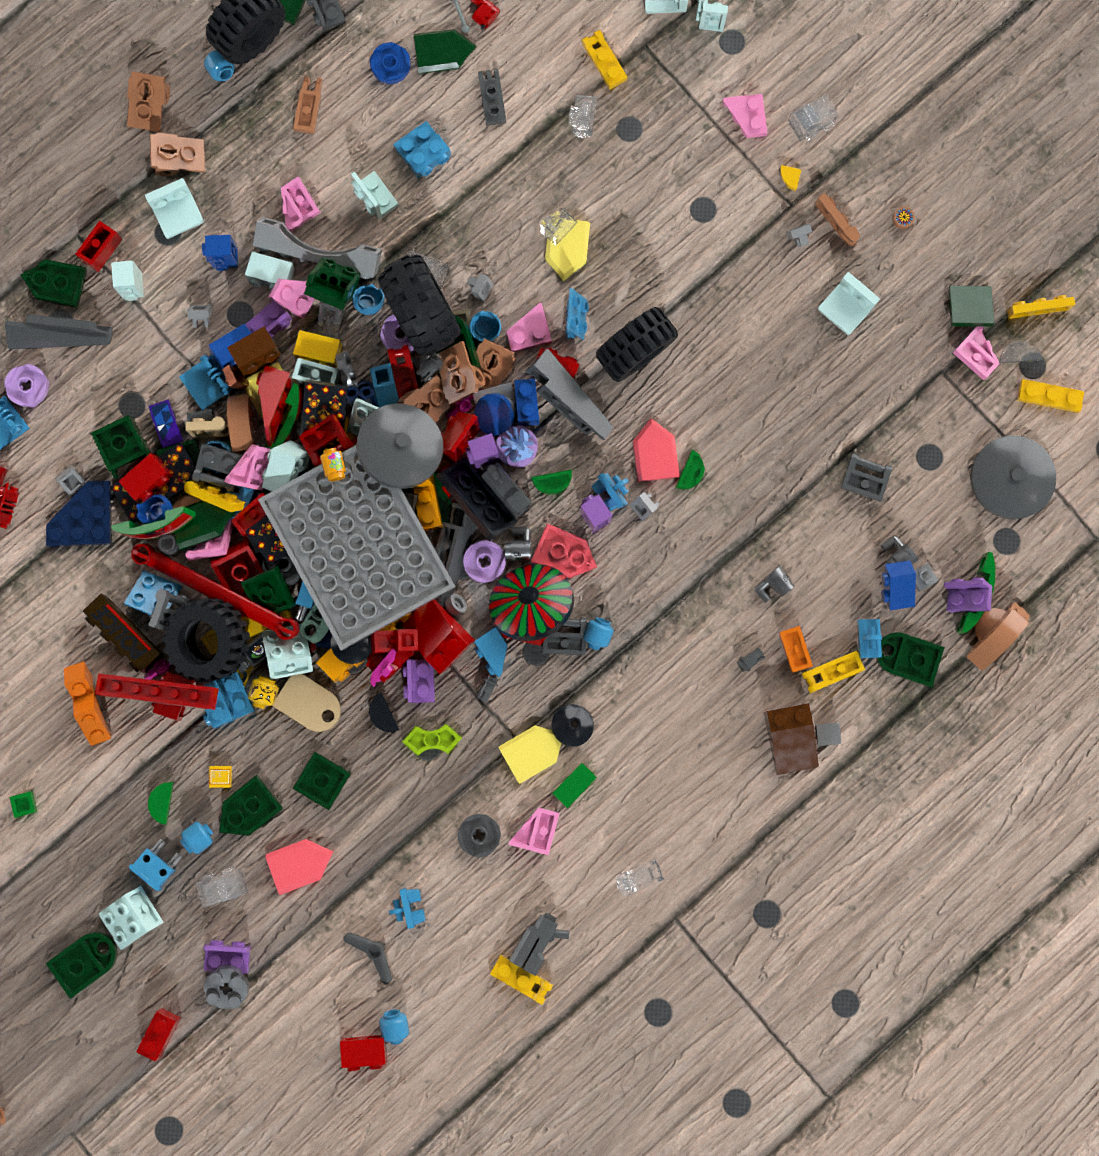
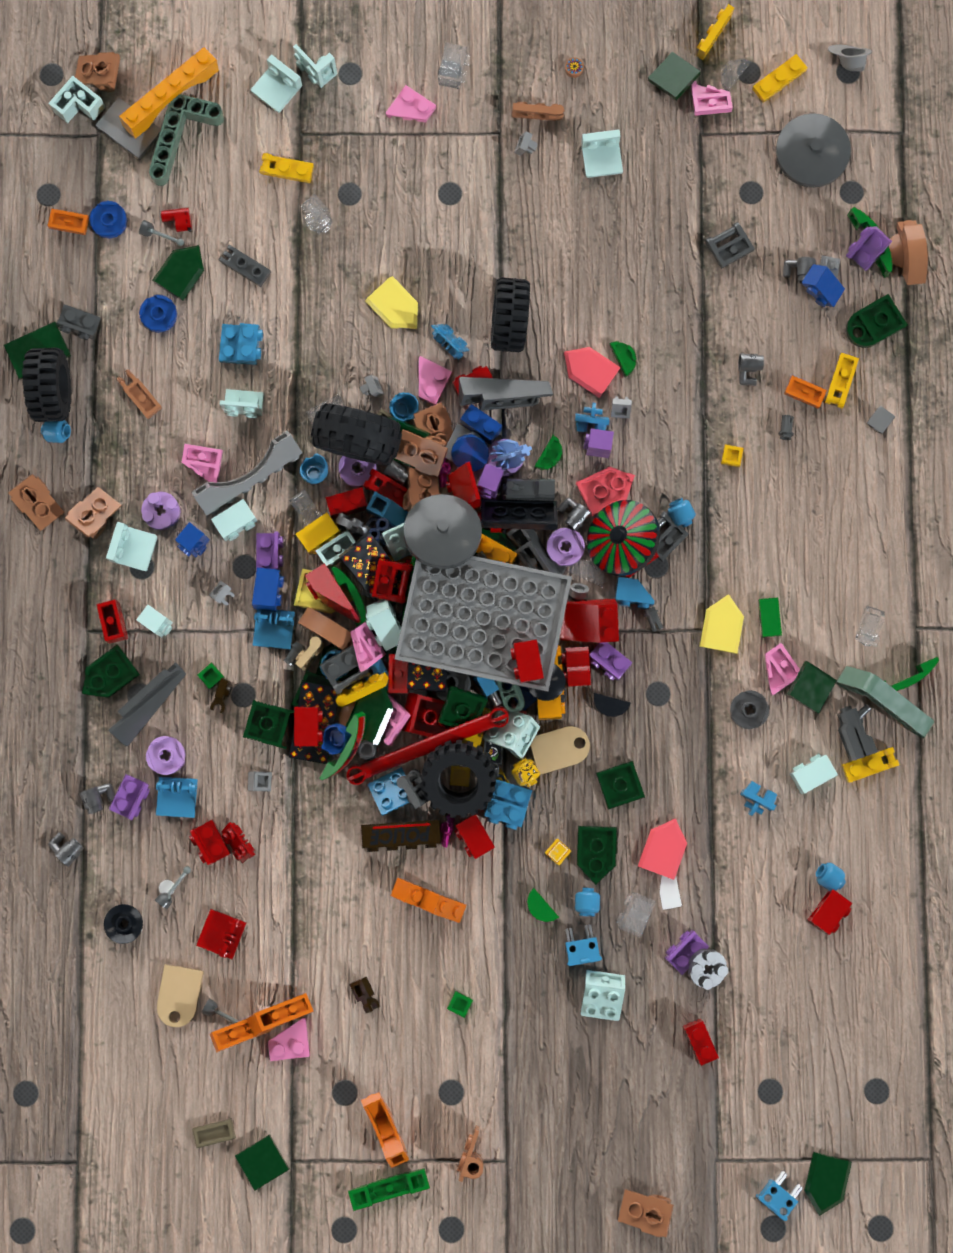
camera: 45 degrees left, 0 degrees up
(83, 963) = (605, 1054): dark green tile -> none
(84, 518) = (294, 795): dark blue plate -> none
(117, 385) = (223, 690): none -> dark brown plate
(124, 365) = (210, 676): none -> green tile
(156, 691) = (464, 843): red plate -> none
(165, 423) = (277, 681): slope -> none
(216, 201) = (151, 516): none -> lavender plate
(235, 378) = (289, 606): copper plate -> none
(254, 351) = (289, 574): reddish brown slope -> none
(265, 901) = (669, 893): none -> white sticker
(292, 297) = (267, 516): bright pink wing -> none
(332, 283) = (284, 482): dark green piece -> none
(333, 464) = (417, 586): light orange brick -> none
(348, 610) = (527, 661): none -> red brick
(363, 349) = (346, 502): none -> red brick
(374, 951) = (768, 847): dark grey piece -> none
(383, 668) = (582, 674): dark pink piece -> none
(399, 640) = (570, 651): red slope -> none
(422, 740) = (650, 694): lime tile -> none
(430, 368) = (401, 468): dark grey pin -> none
(470, 936) = (813, 774): none -> light aqua brick
(543, 871) = (811, 687): none -> dark green tile
(557, 226) = (377, 298): clear slope -> none
(565, 732) = (725, 591): black dish -> none
(586, 945) = (886, 698): none -> sand green beam
(644, 954) = (923, 670): none -> green slope
(686, 634) = (732, 455): none -> yellow tile
(790, 176) = (479, 116): yellow tile -> none
(792, 738) = (862, 446): reddish brown slope -> none
(869, 638) = (840, 337): dark azure hips -> none

